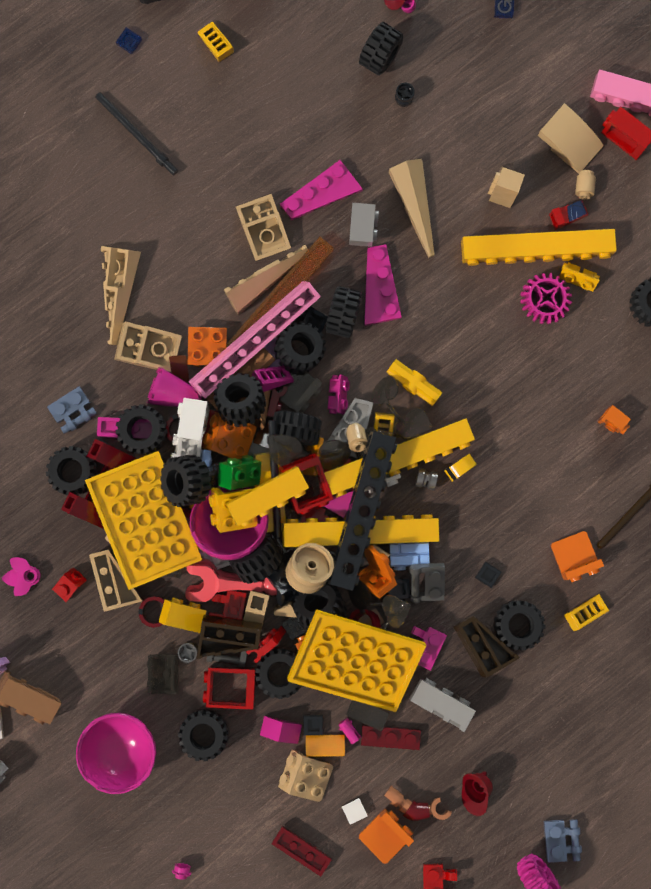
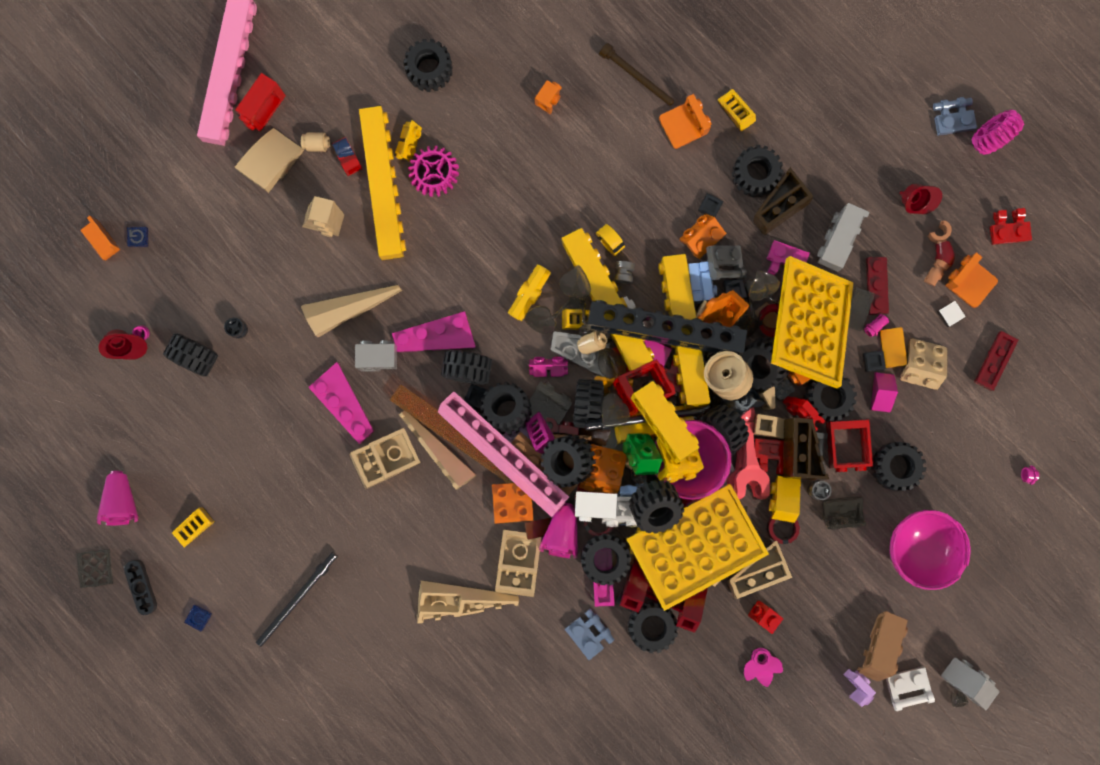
camera: 90 degrees left, 0 degrees up
(458, 563) = (702, 234): none -> orange bracket

